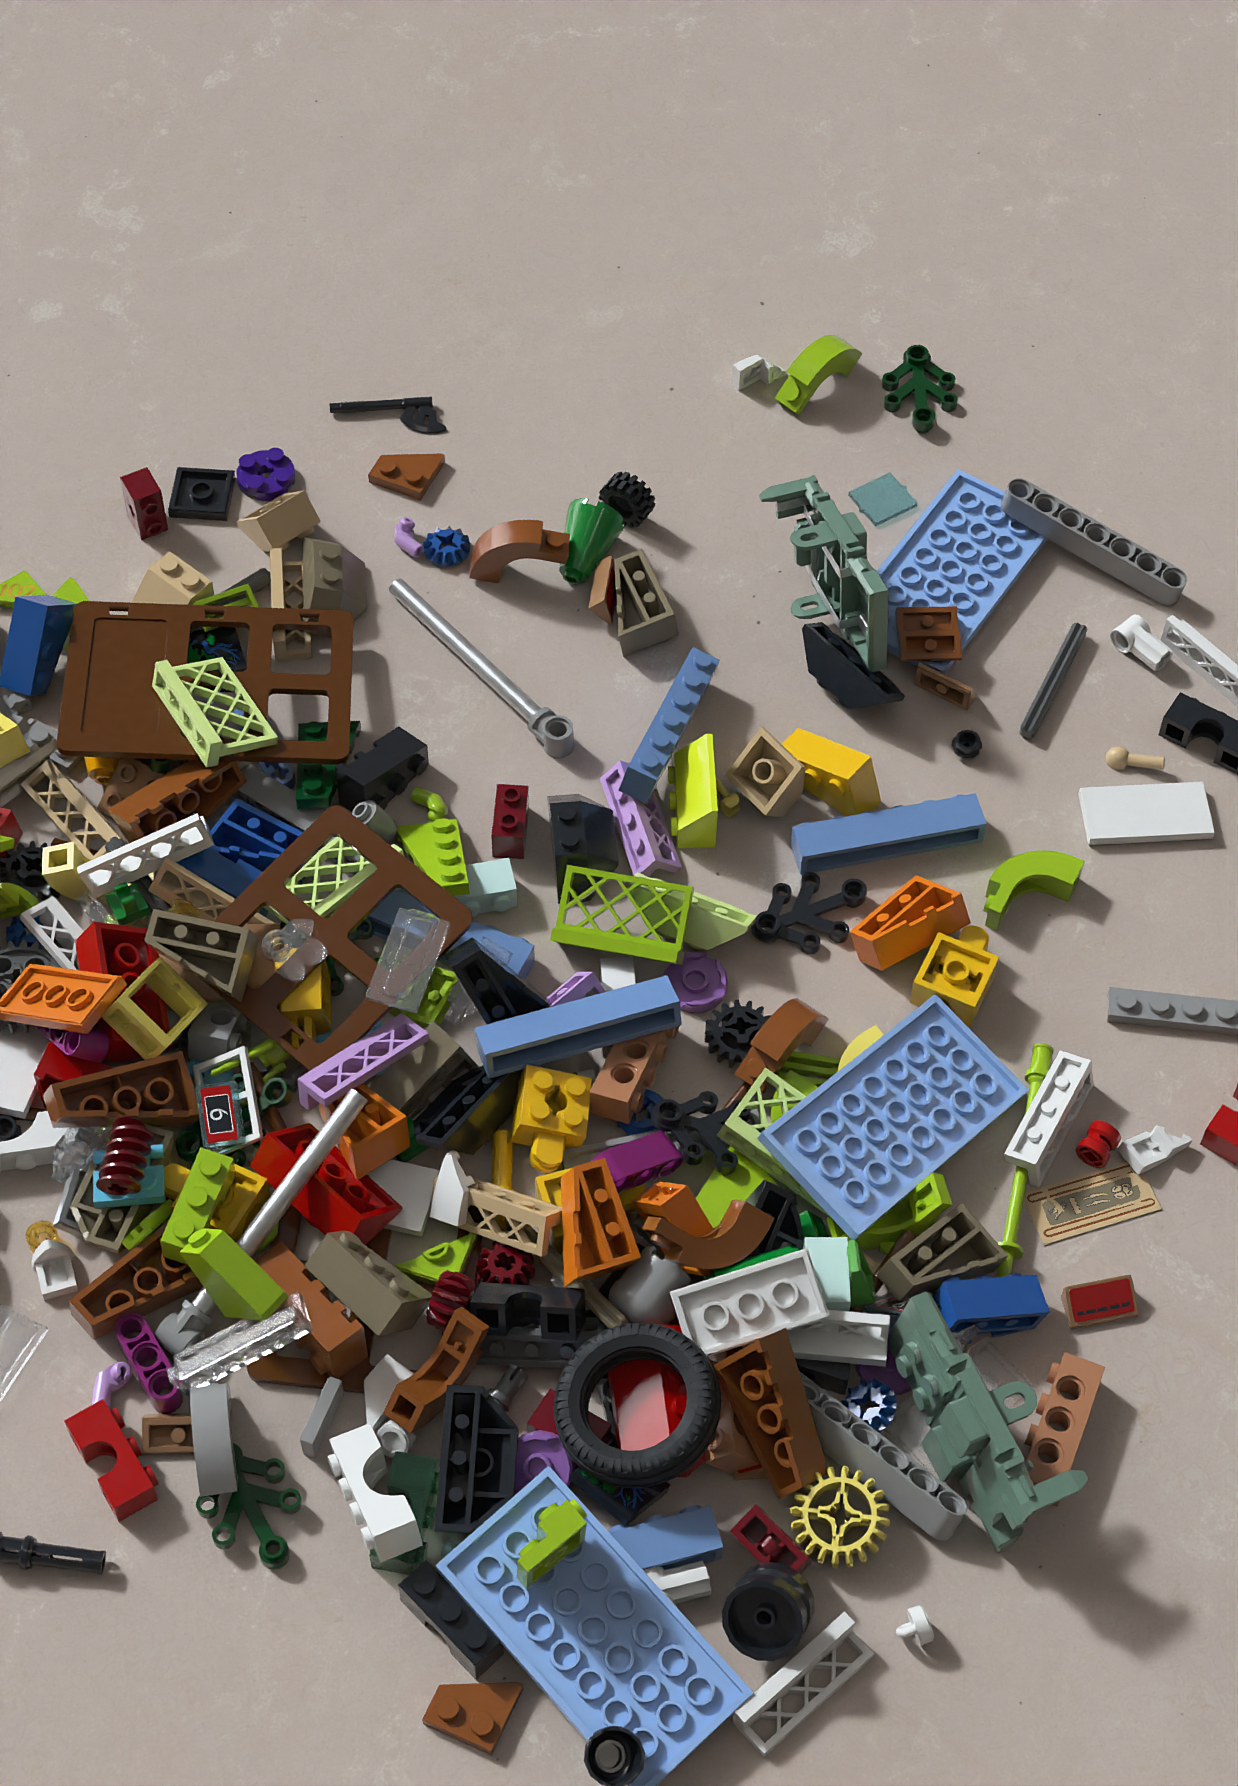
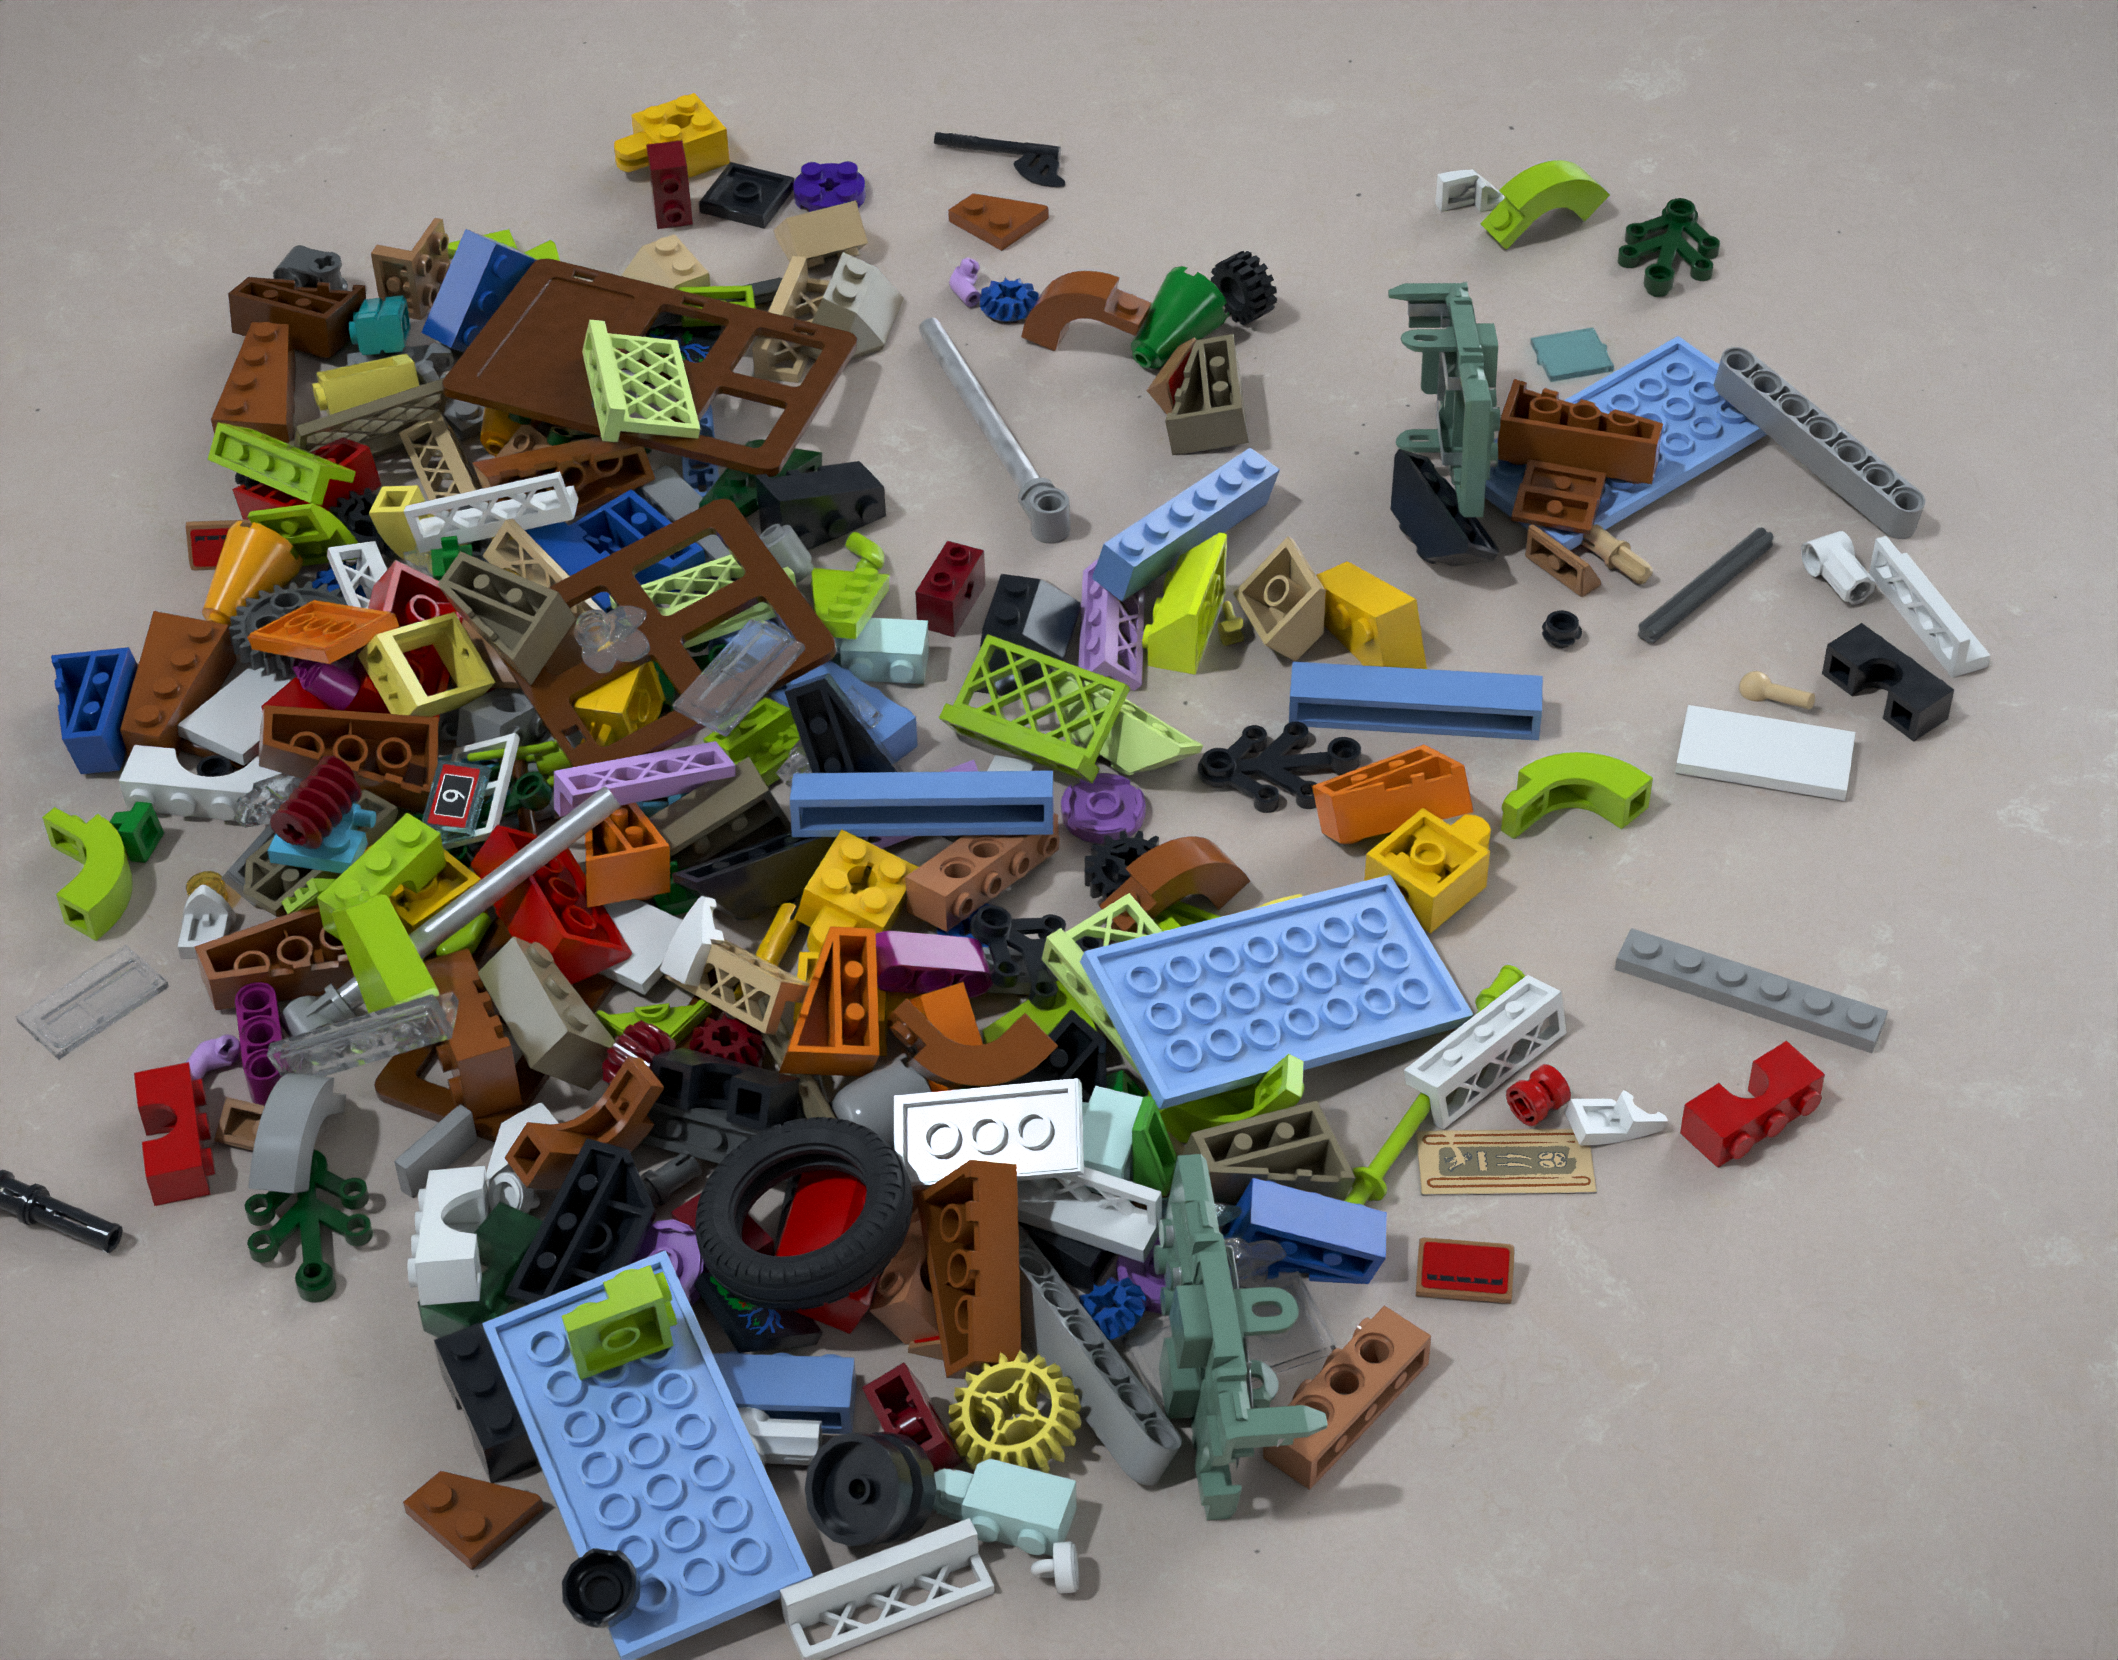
camera: 20 degrees right, 10 degrees down
(123, 450) = (680, 119): none -> yellow brick
(864, 1587) = (1009, 1504): none -> light aqua hinge
(932, 580) = (1577, 435): none -> dark orange wedge
(983, 670) = (1617, 554): none -> tan axle

